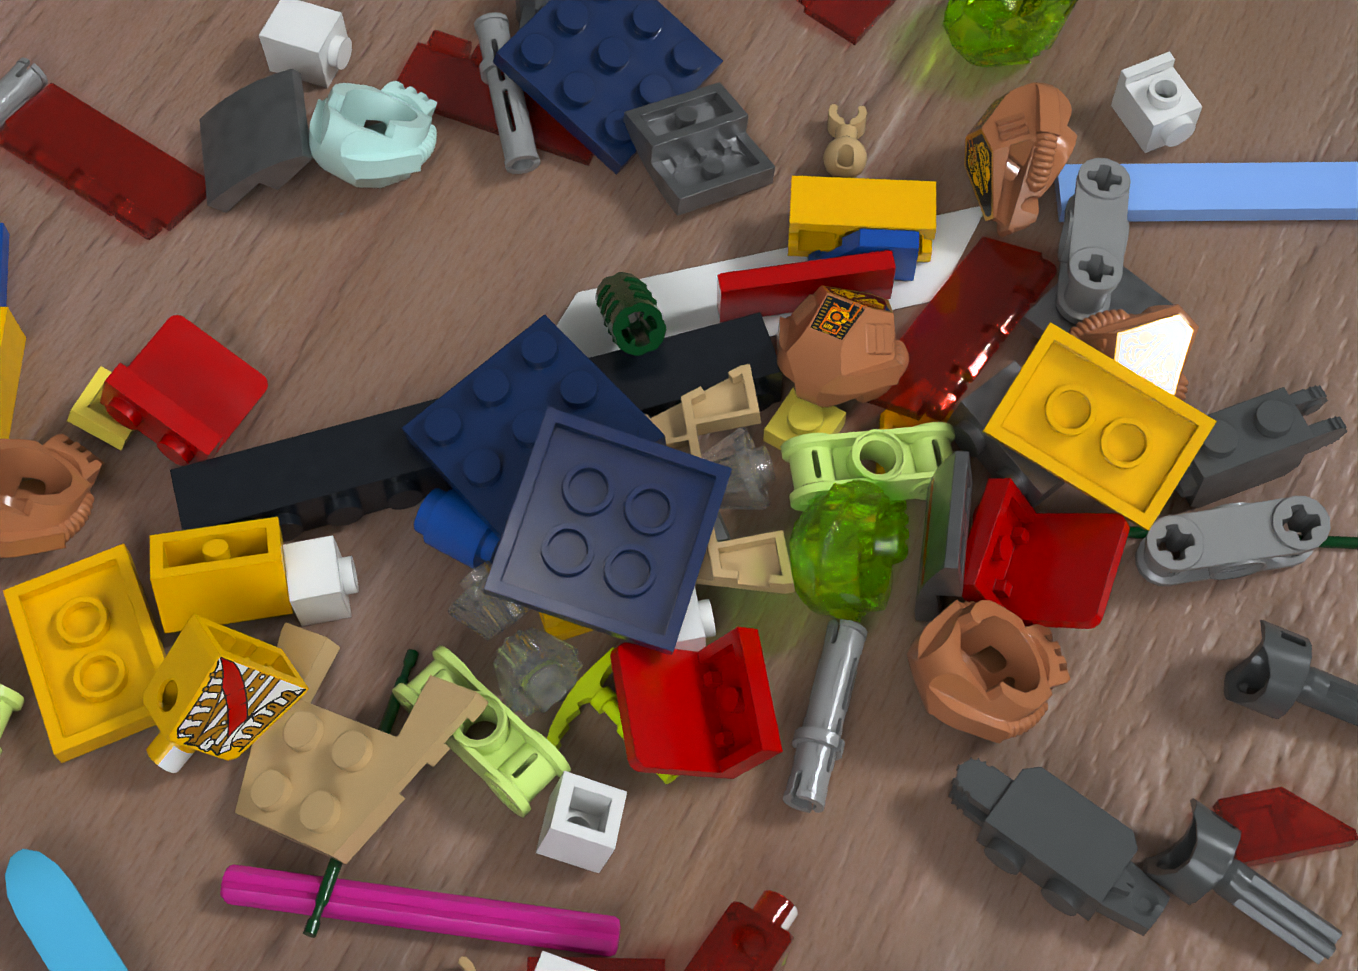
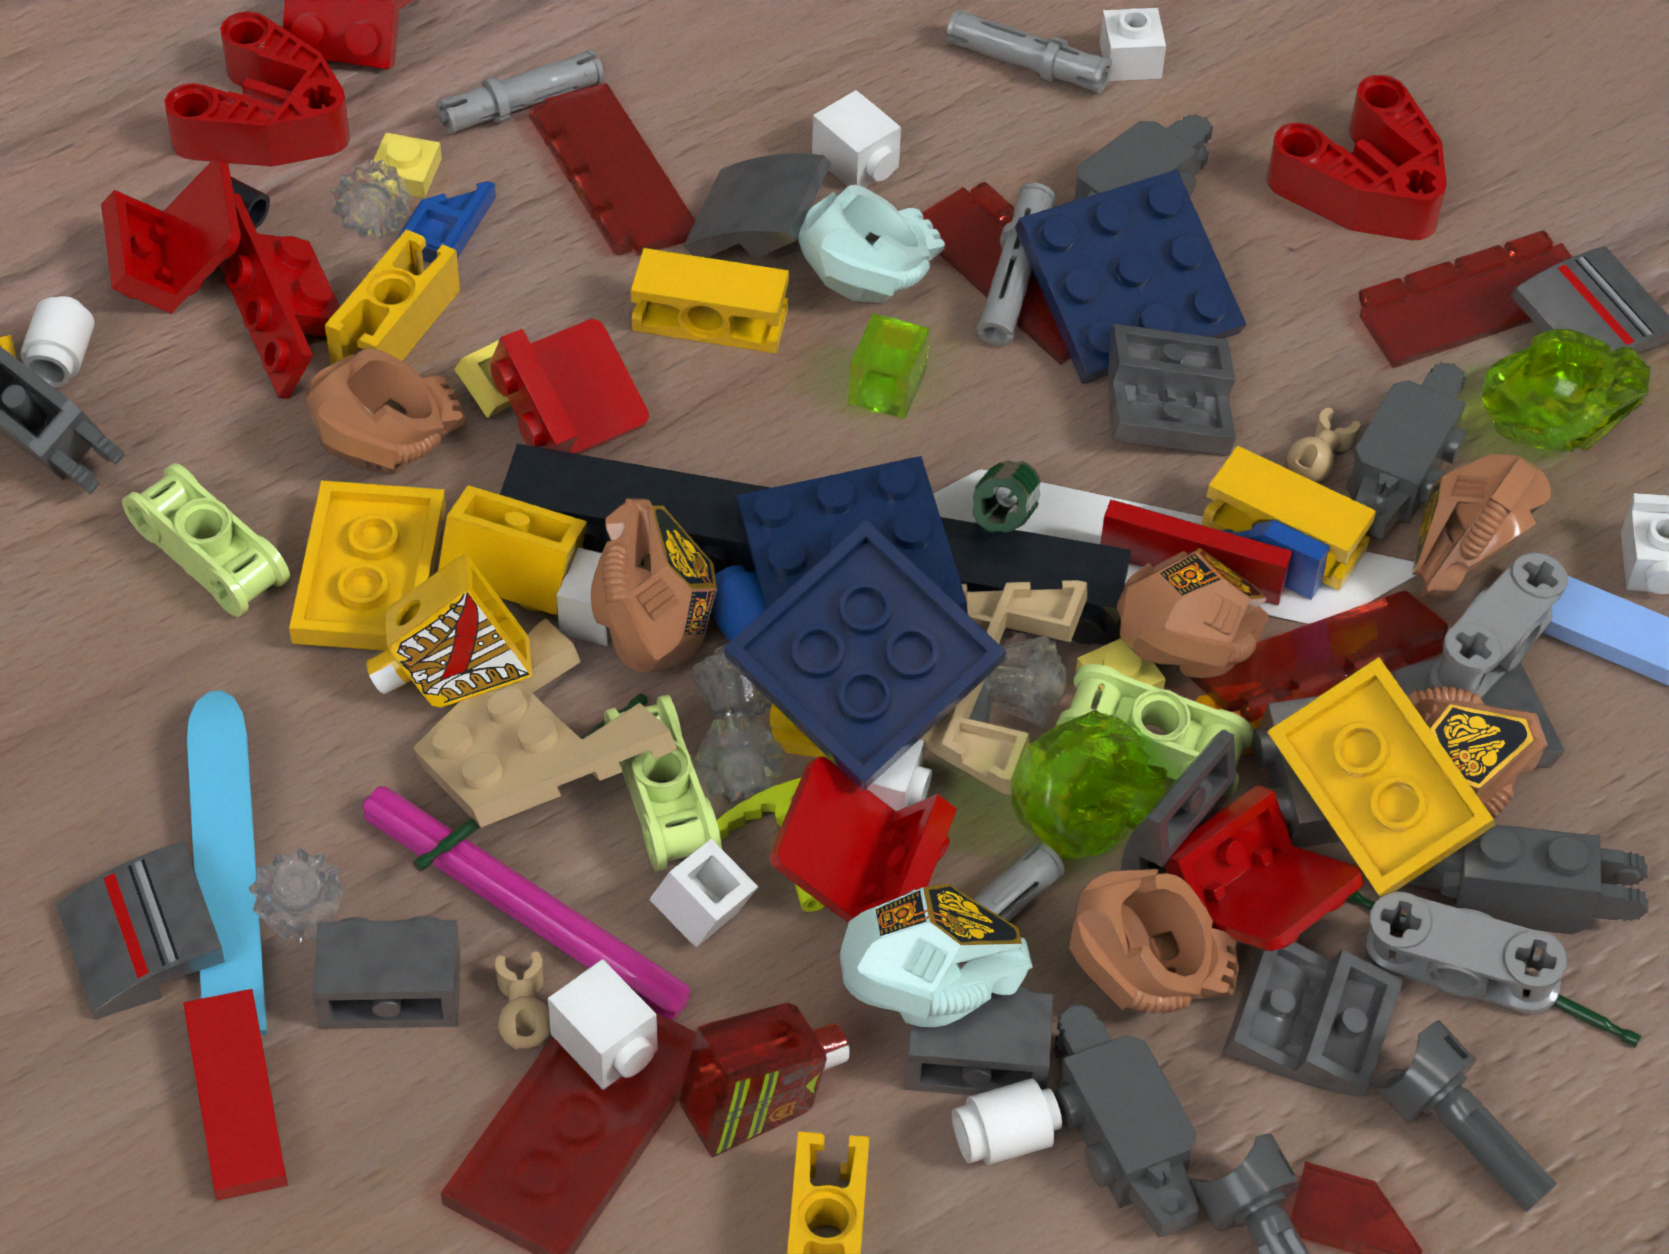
camera: 25 degrees right, 10 degrees down
(260, 247) = (709, 300): none -> yellow piece
(373, 551) = (657, 610): none -> nougat helmet
(451, 236) = (888, 366): none -> clear neon green brick
(827, 790) = (910, 951): none -> light aqua helmet
(894, 833) = (985, 1049): none -> flat silver brick
(916, 110) = (1407, 446): none -> dark grey hinge
(962, 900) = (1006, 1122): none -> white brick
(1144, 662) = (1314, 1018): none -> flat silver slope

